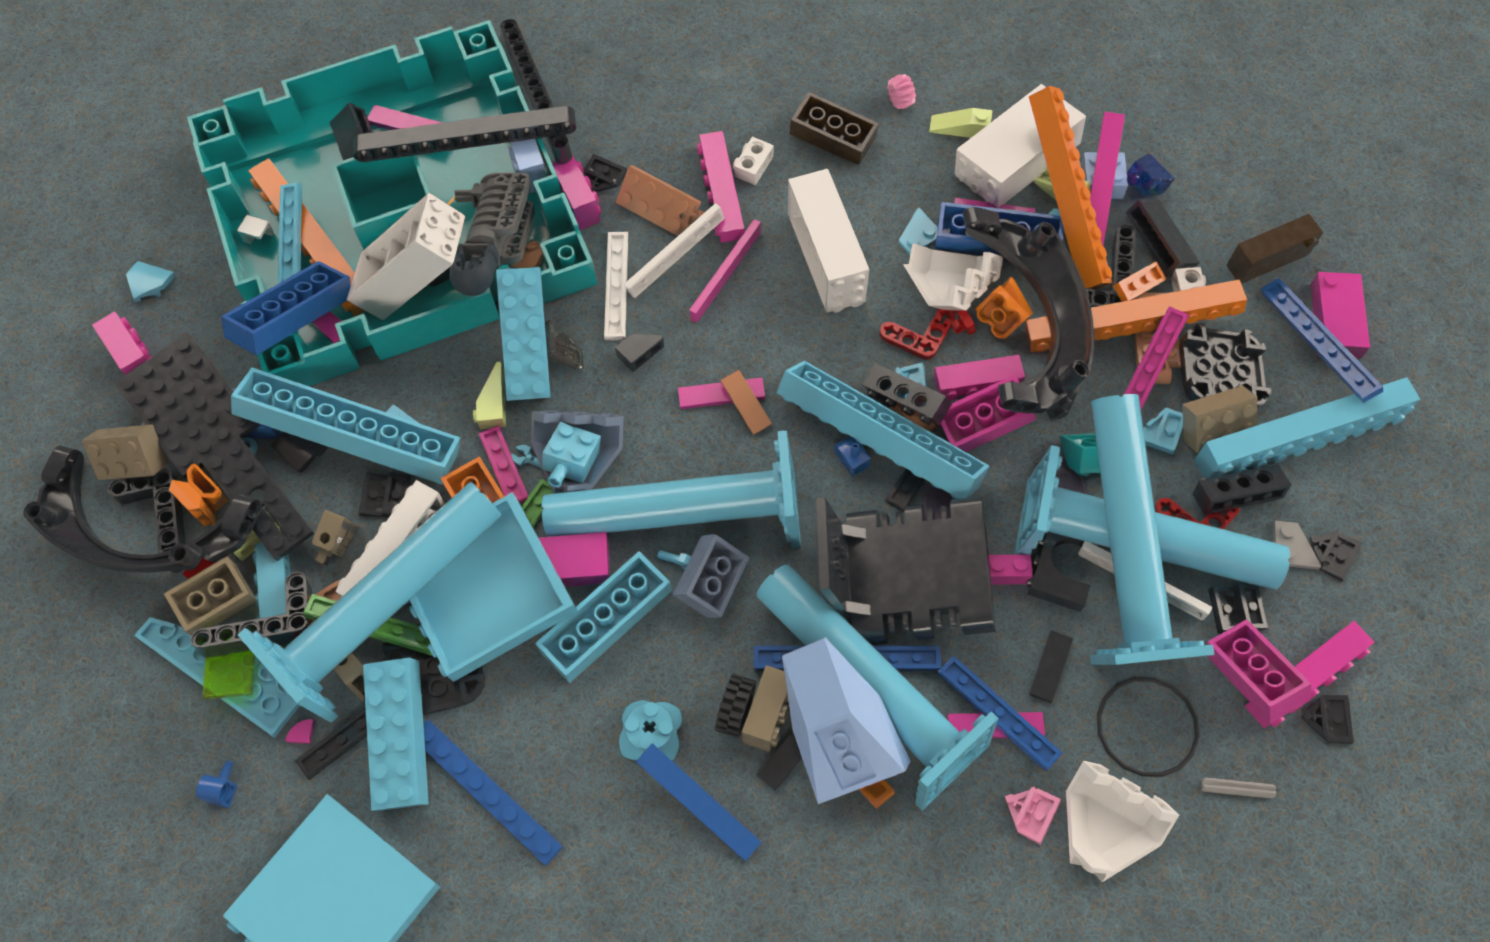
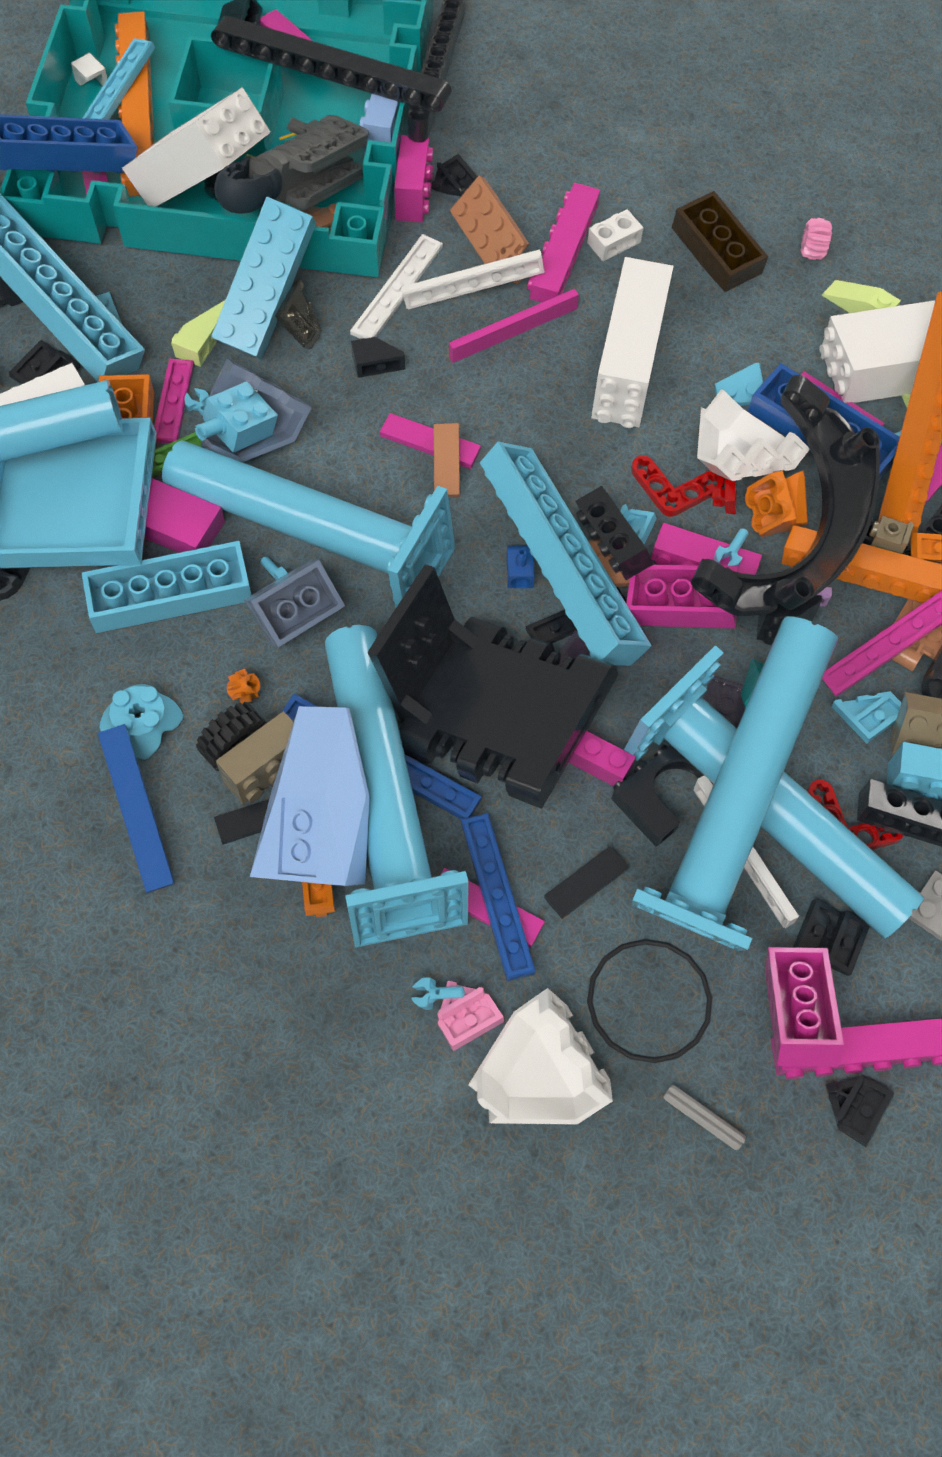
camera: 25 degrees right, 0 degrees up
(712, 661) = (243, 686): none -> orange gear
(997, 358) = (732, 550): none -> medium azure bar
(1004, 810) = (435, 993): none -> medium azure bar
(1101, 292) = (891, 534): none -> dark tan brick

